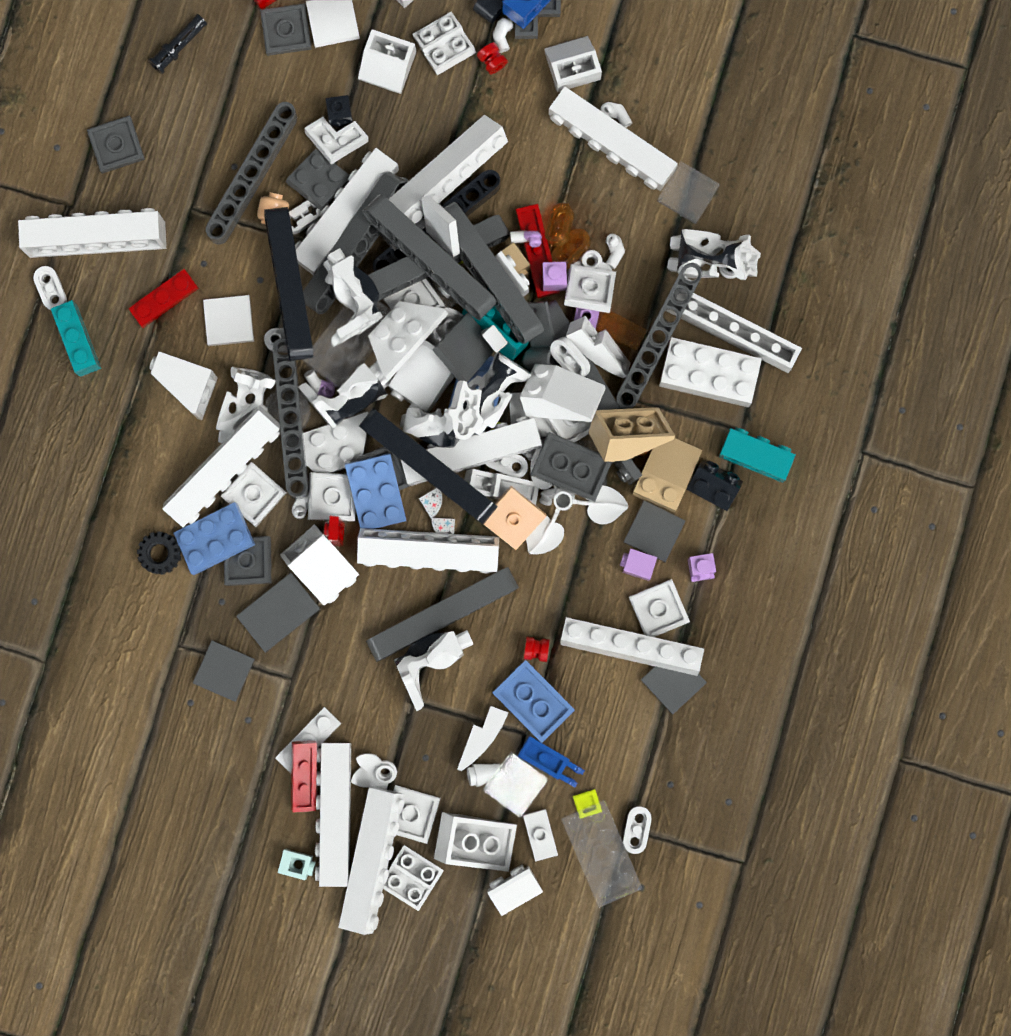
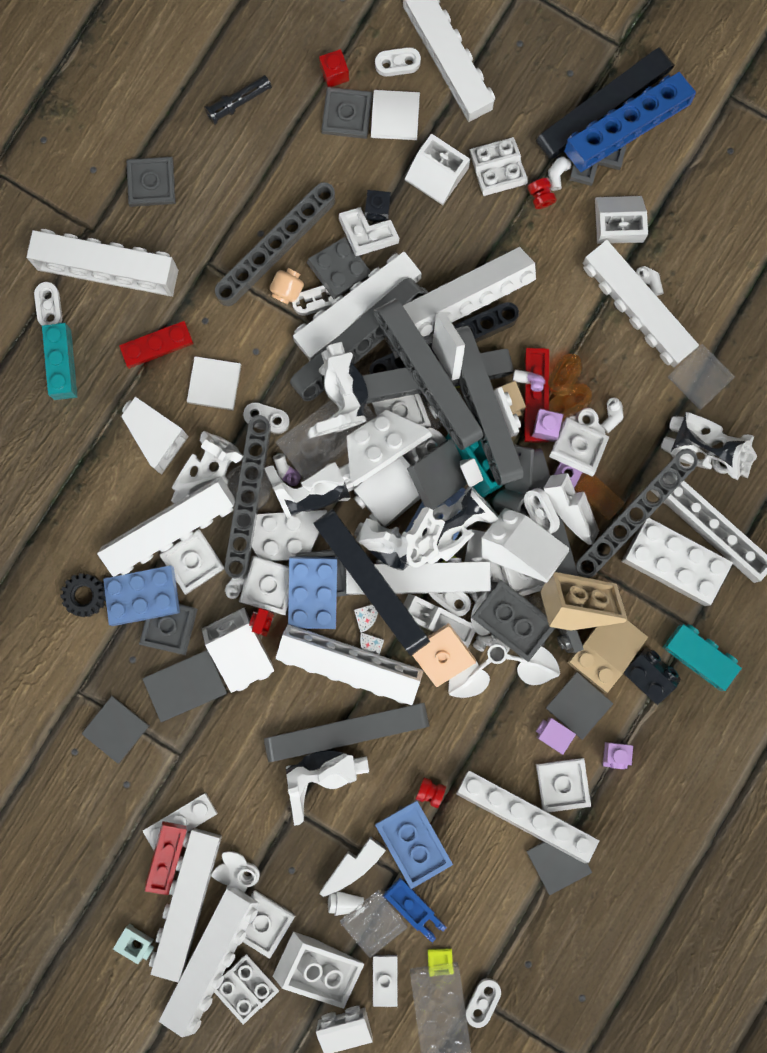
camera: 15 degrees right, 0 degrees up
(288, 283) = (281, 364): black beam -> none

